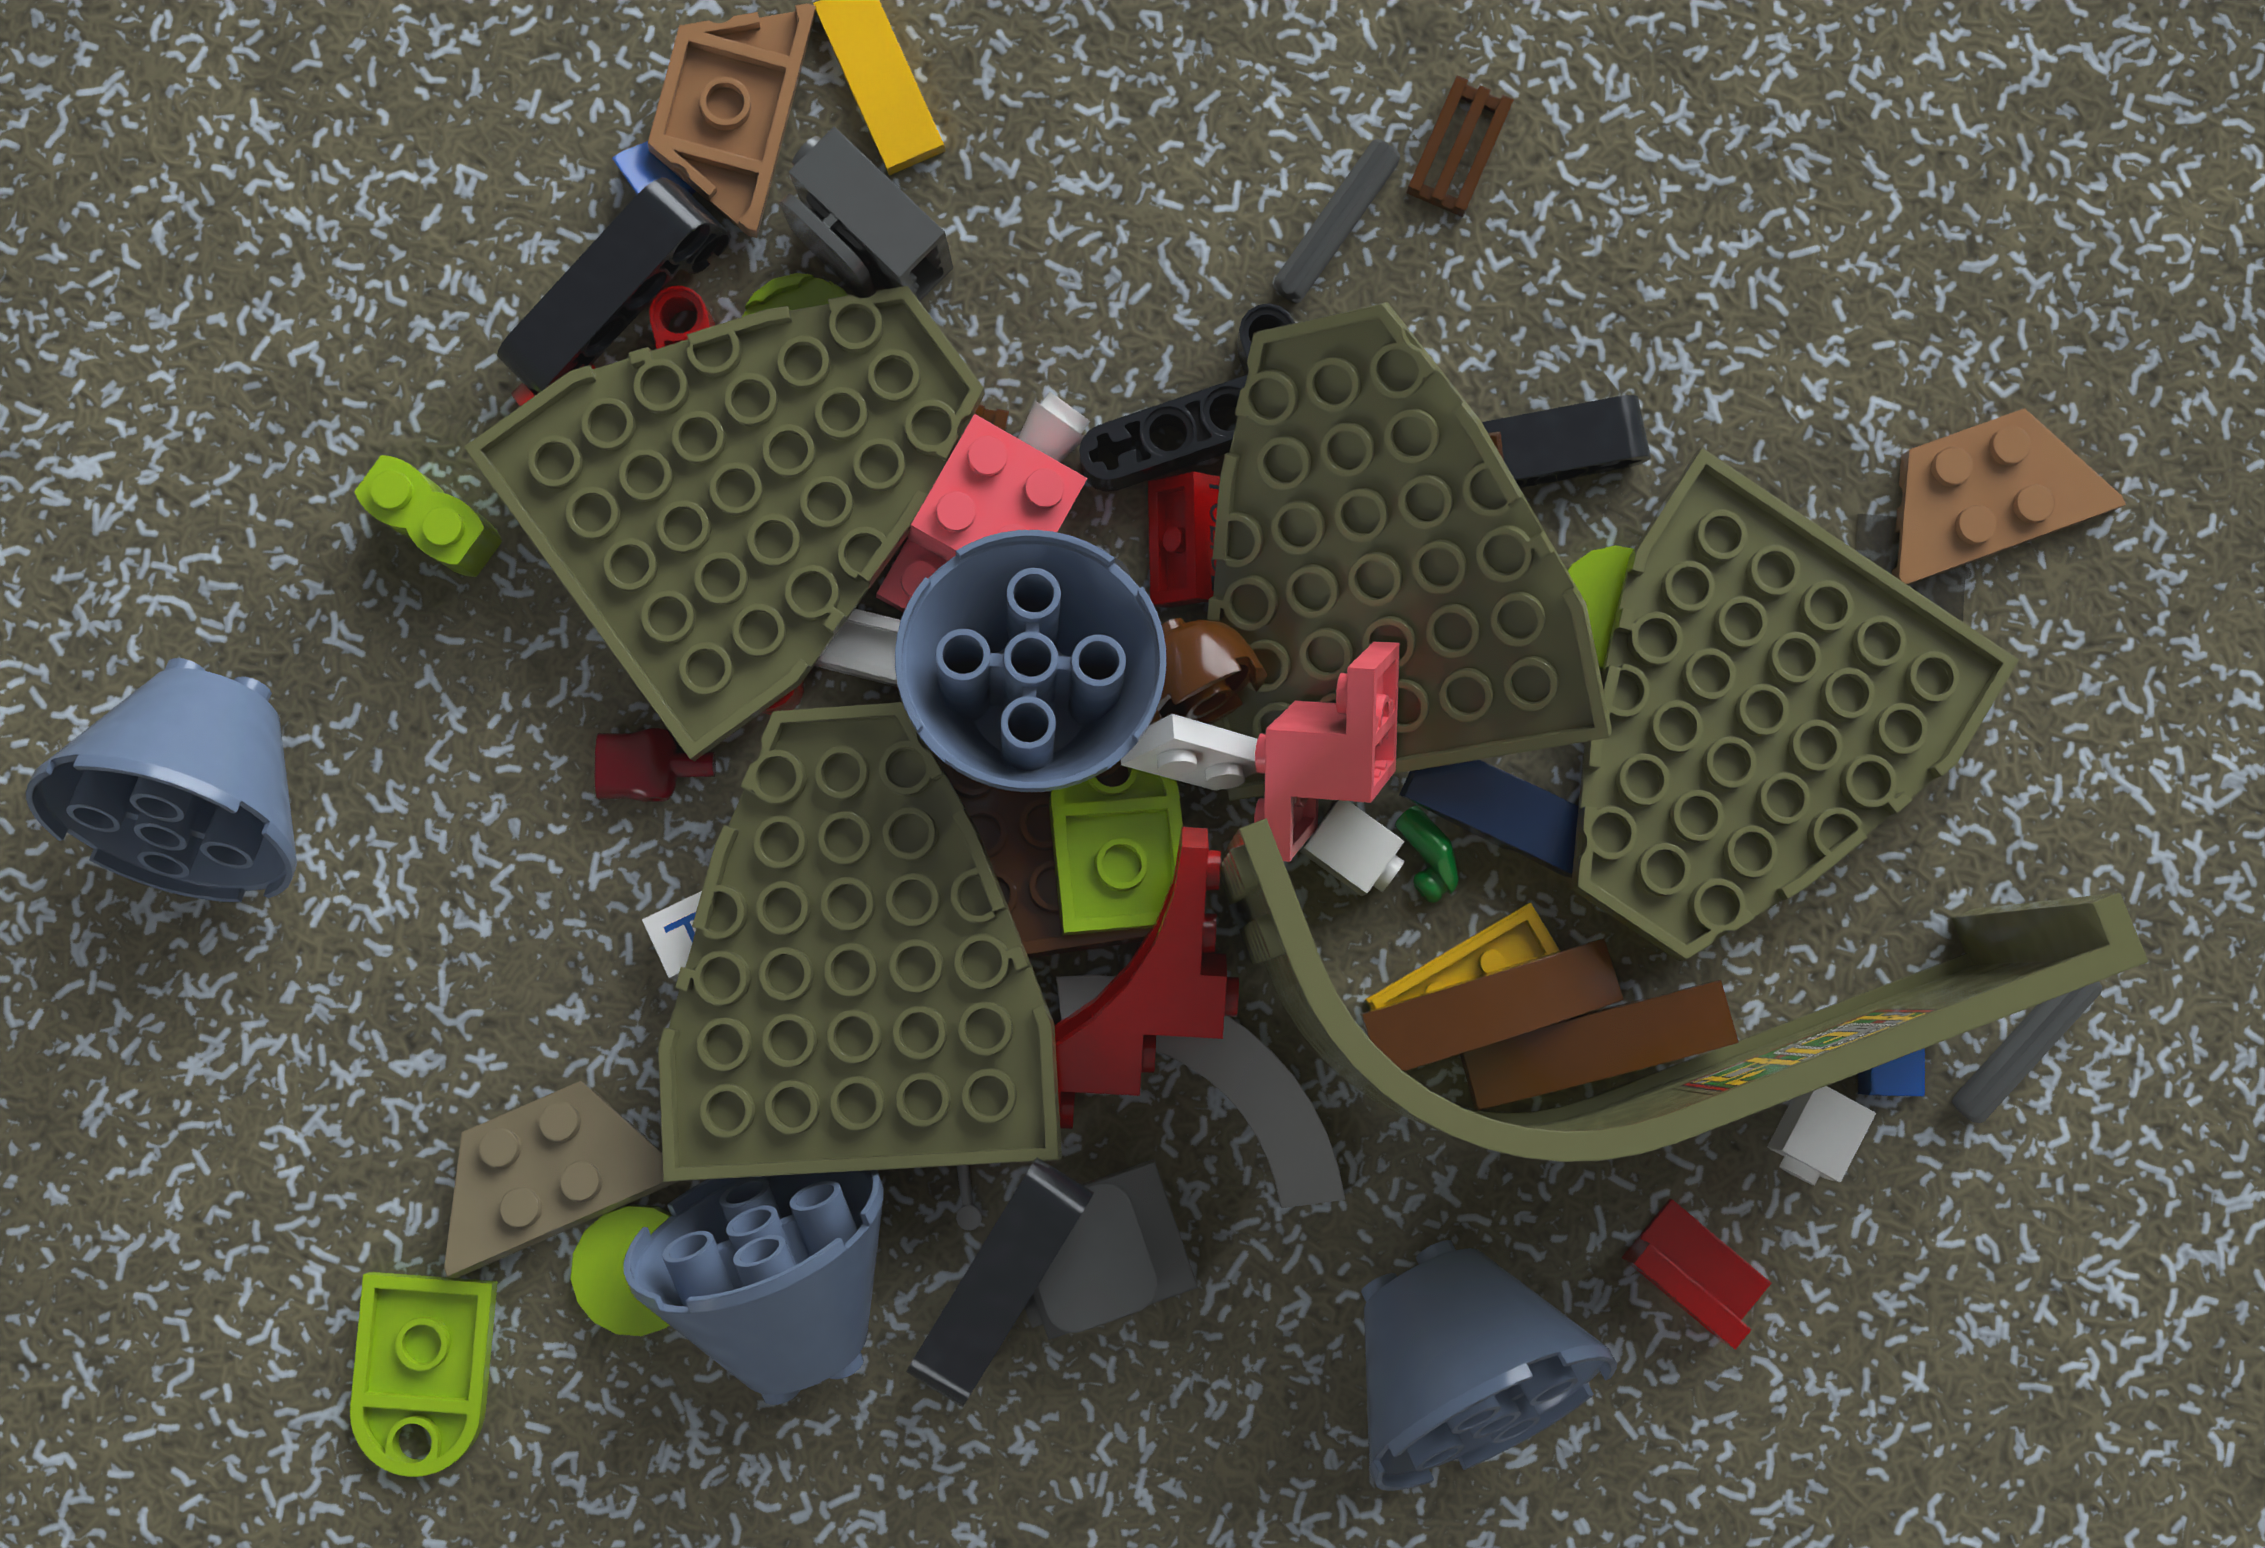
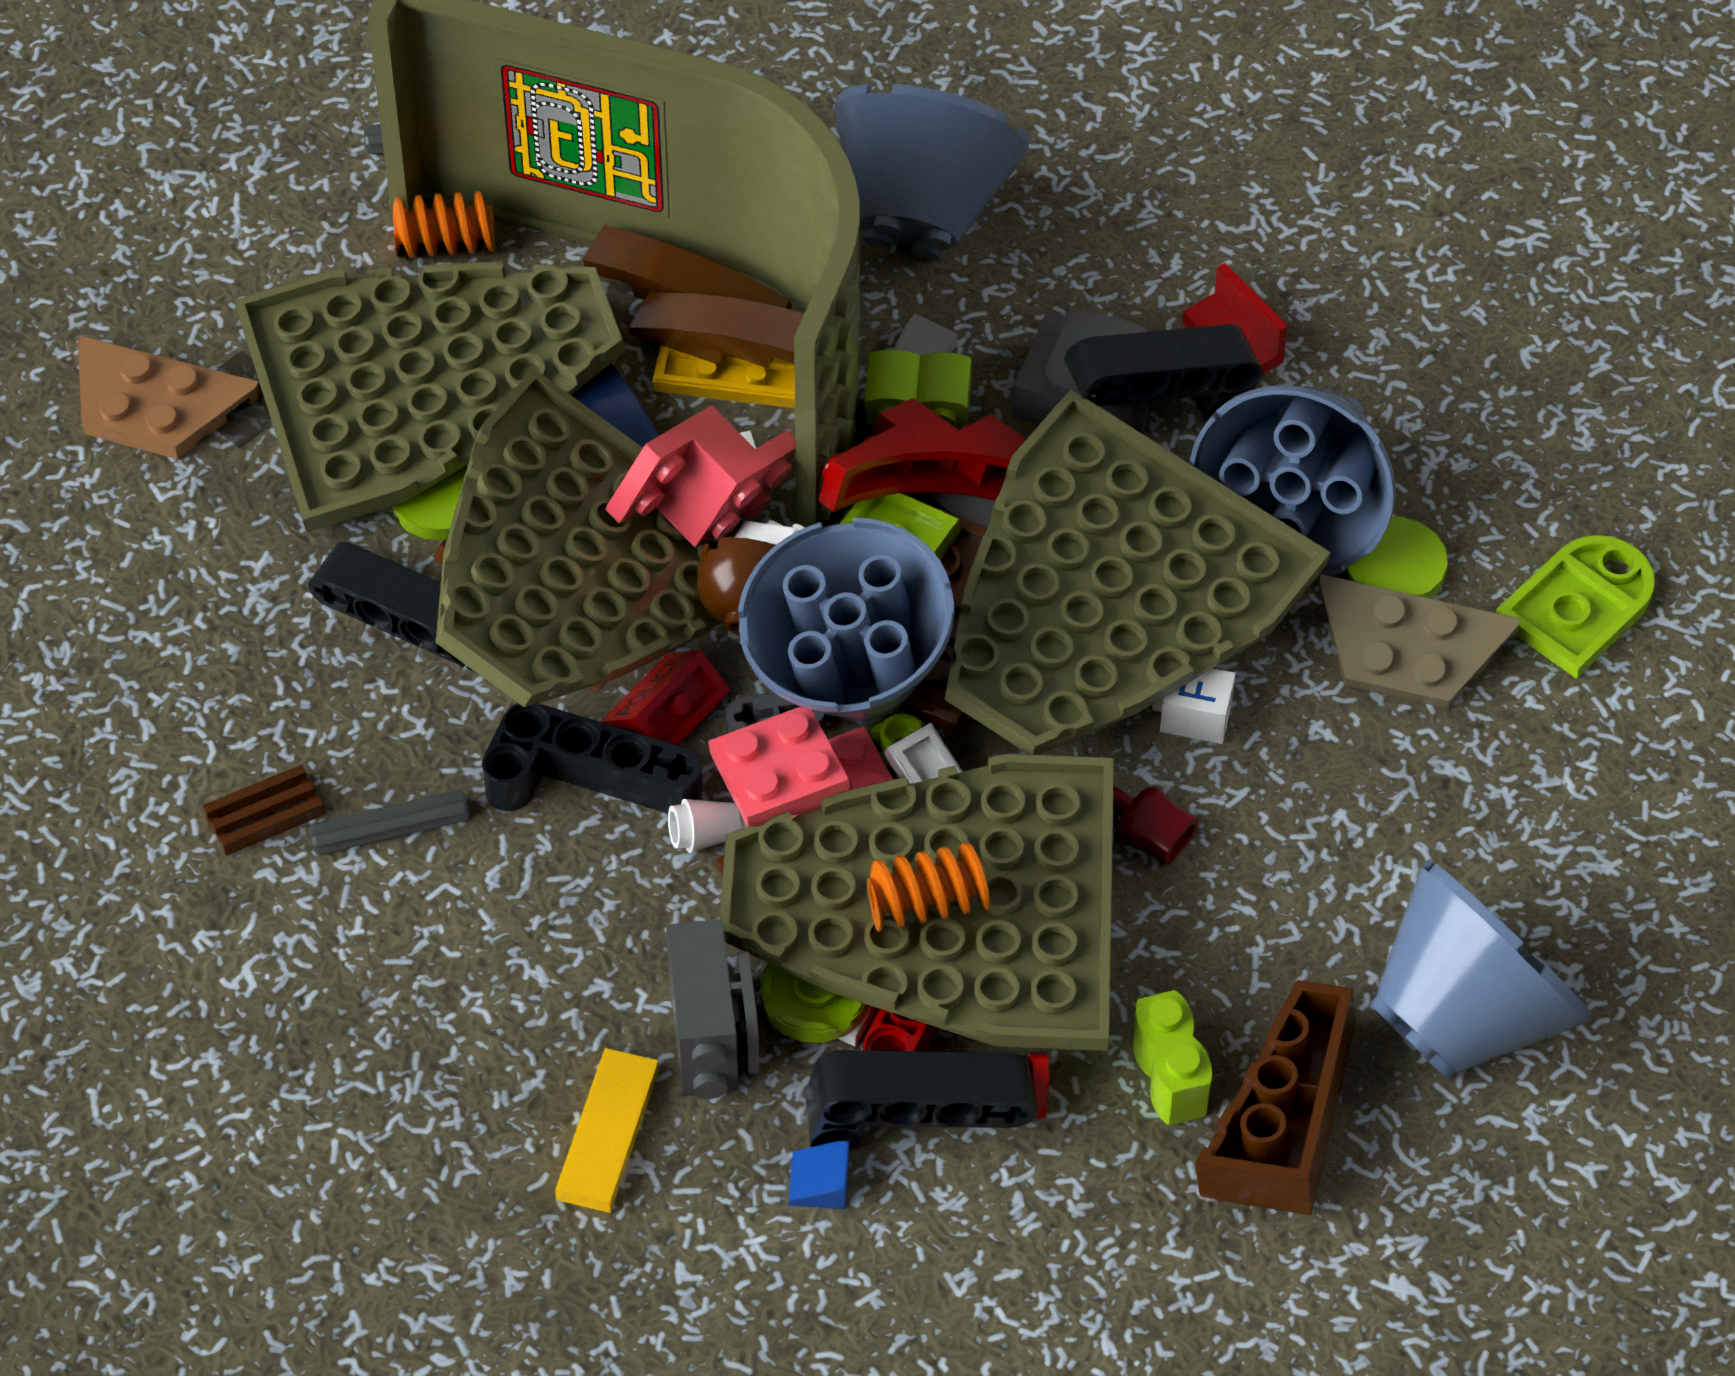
camera: 140 degrees left, 30 degrees down
(285, 539) = (1281, 1121): none -> reddish brown wedge
(730, 107) = (727, 1174): medium nougat wing -> none
(732, 447) = (926, 885): none -> orange piece
(1007, 1444) = (1239, 305): none -> red panel
(1246, 1080) = (934, 379): none -> lime brick
(1899, 918) = (443, 225): none -> orange piece

